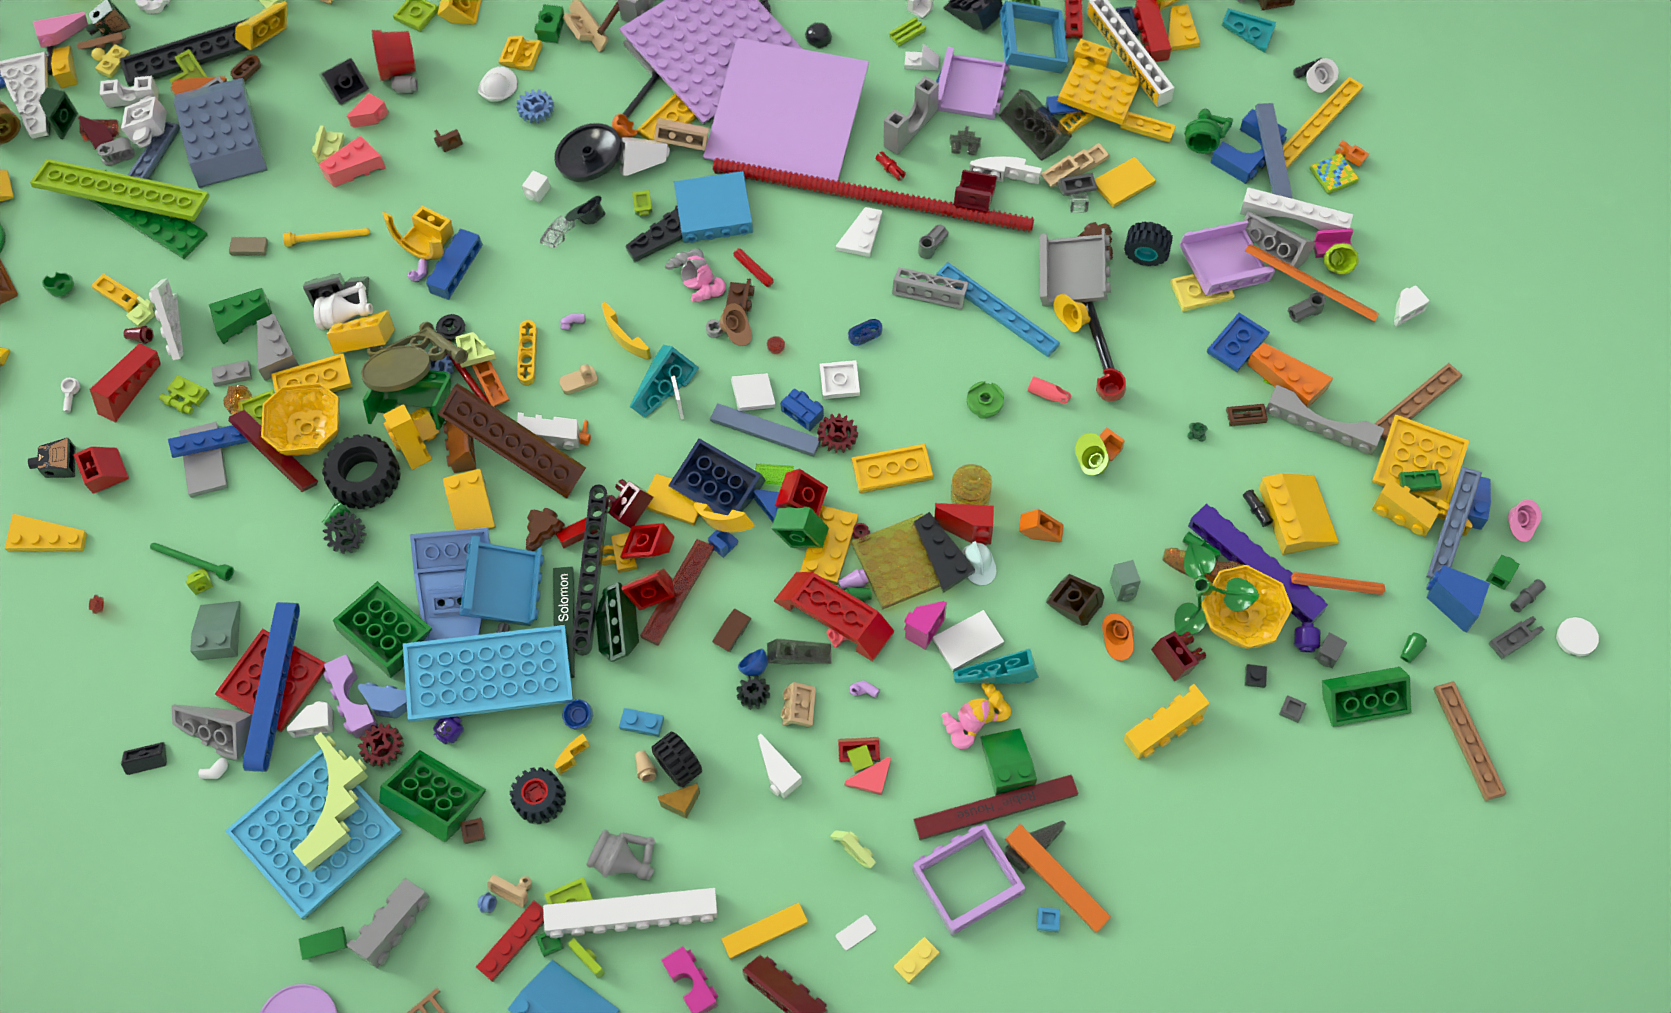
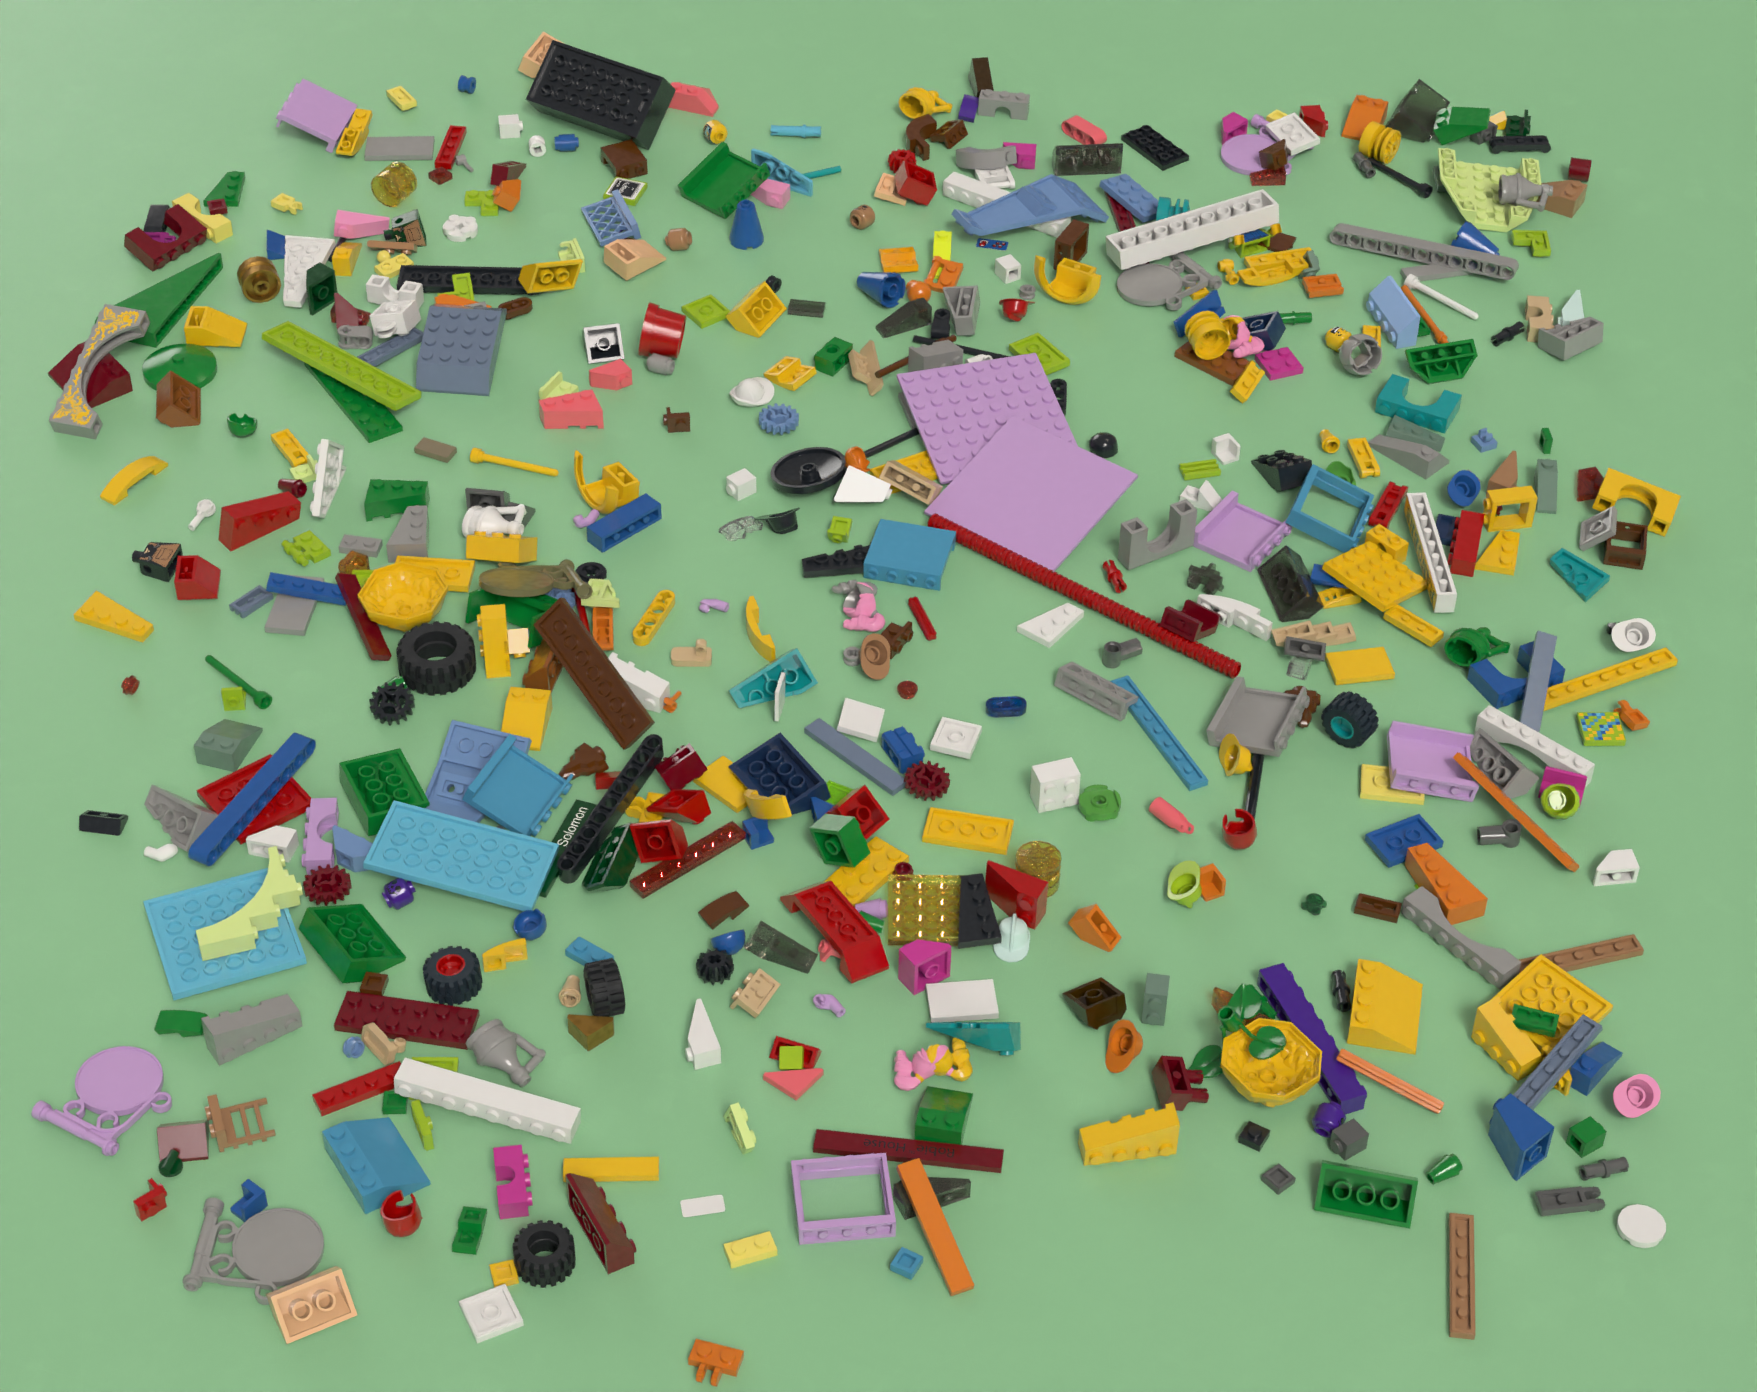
camera: 20 degrees right, 20 degrees down
(164, 470) = (248, 604): none -> sand blue tile
(518, 853) = (408, 1019): none -> dark red plate
(946, 399) = (1055, 785): none -> white brick

